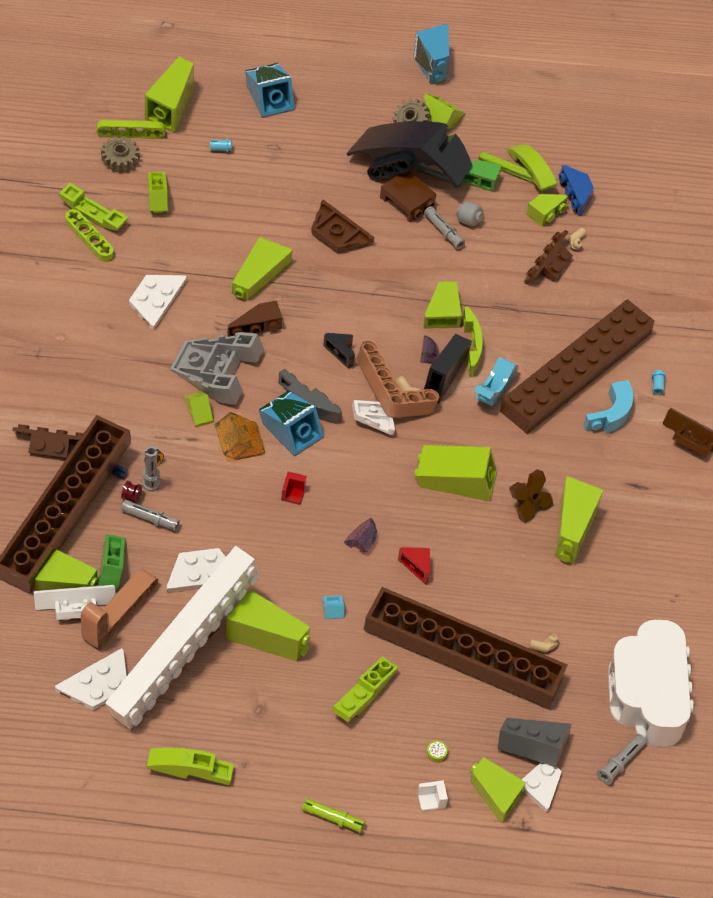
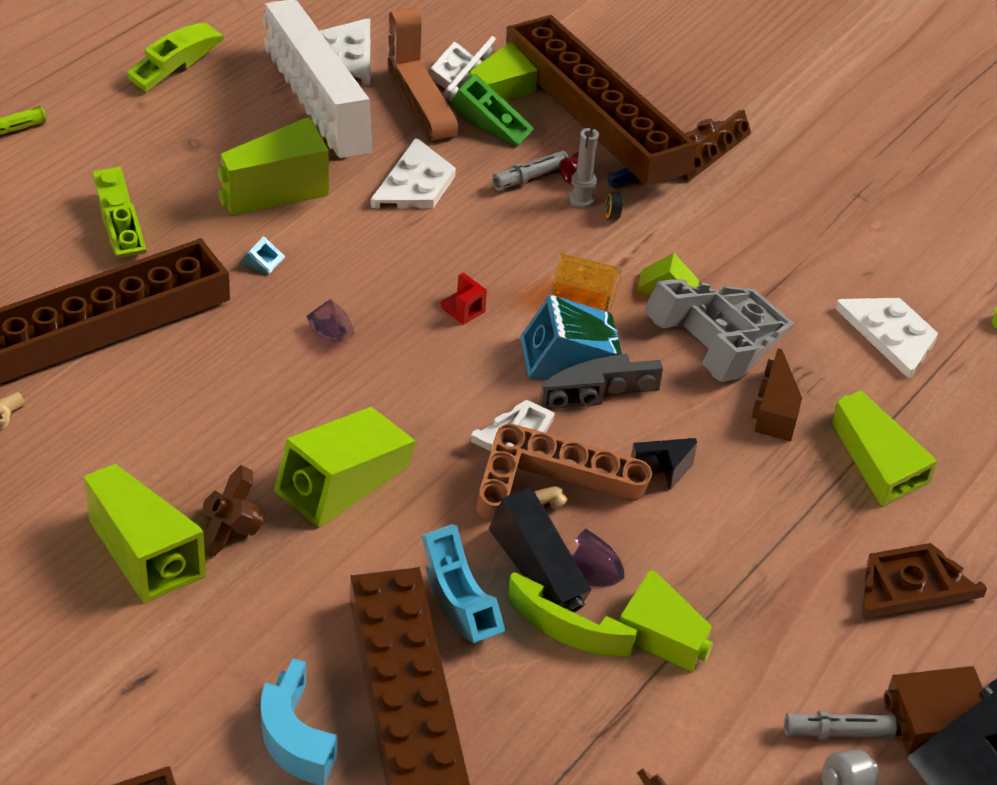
camera: 125 degrees right, 10 degrees down
(417, 561) = (243, 351): red slope -> none

